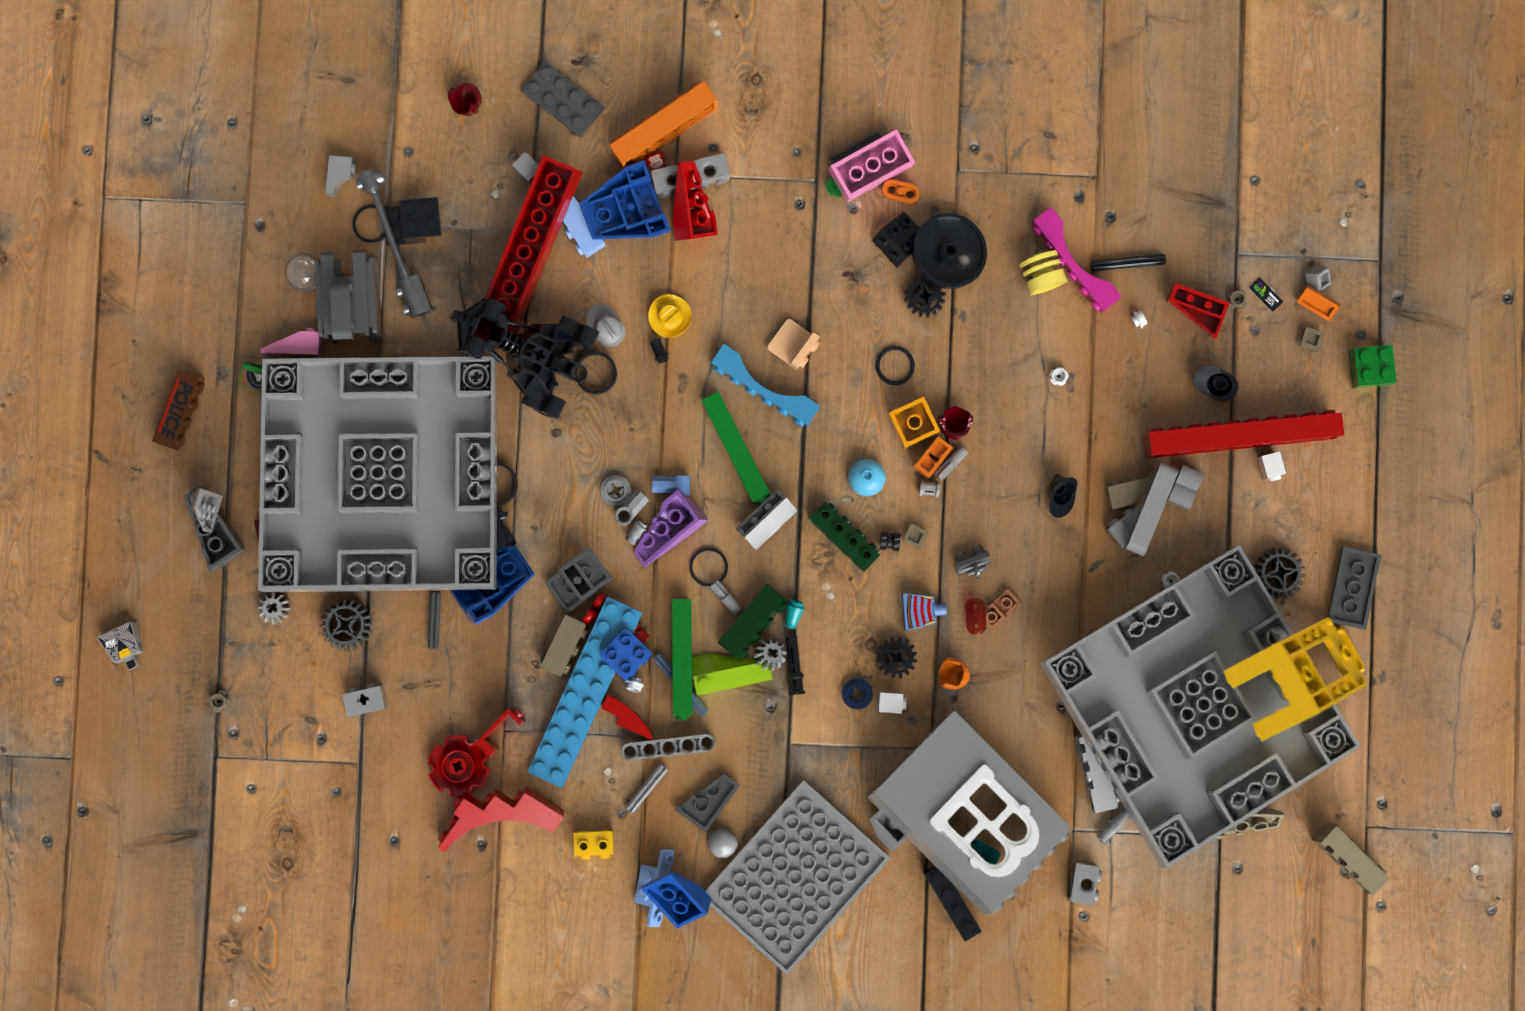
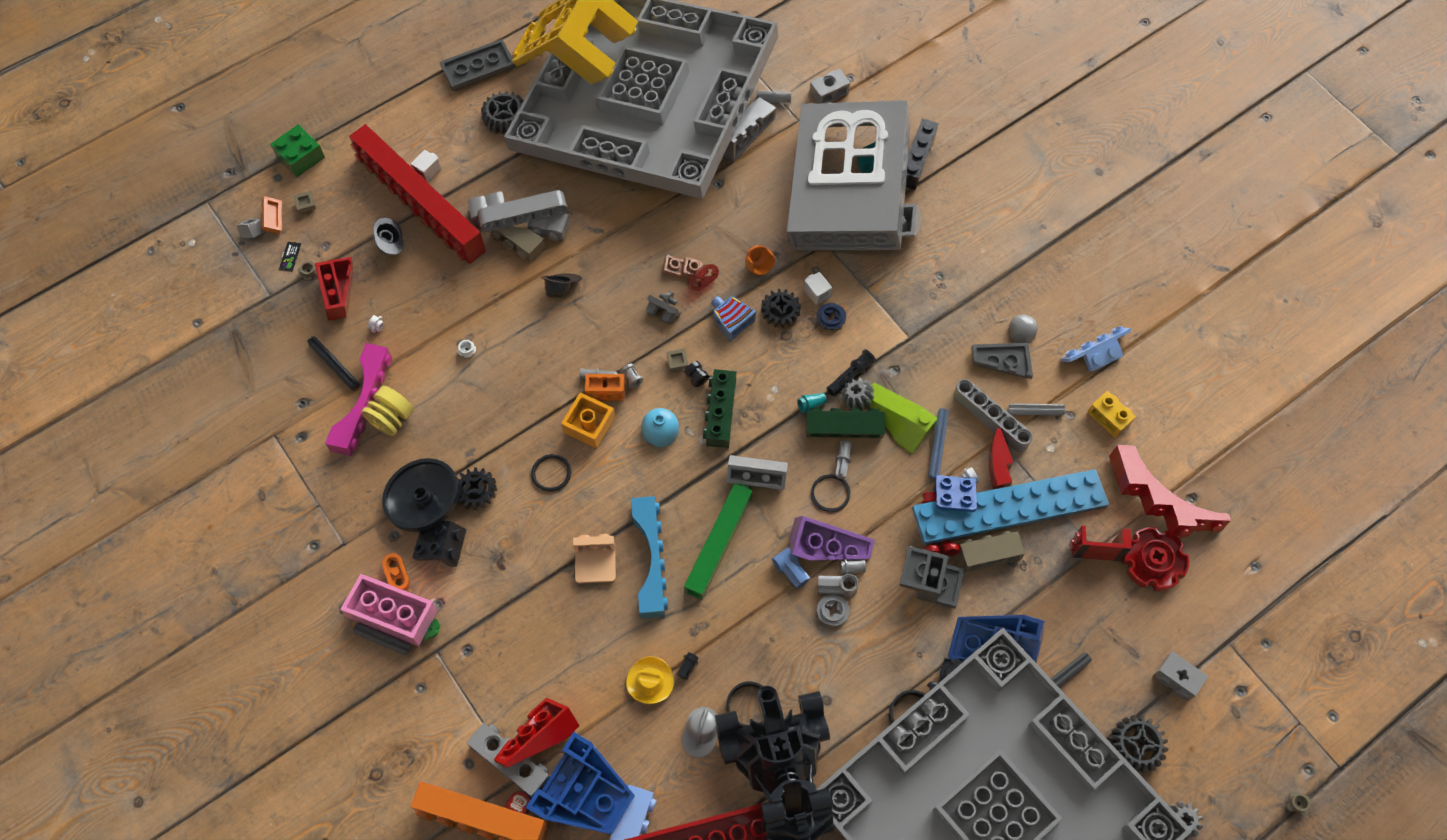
camera: 130 degrees left, 20 degrees down
(678, 898) = (1094, 315): blue slope -> none
(681, 658) = (919, 453): green brick -> none
(795, 877) = (999, 264): light grey plate -> none
(955, 422) = (563, 390): dark red cap -> none
(1166, 577) = (566, 170): white plate -> none

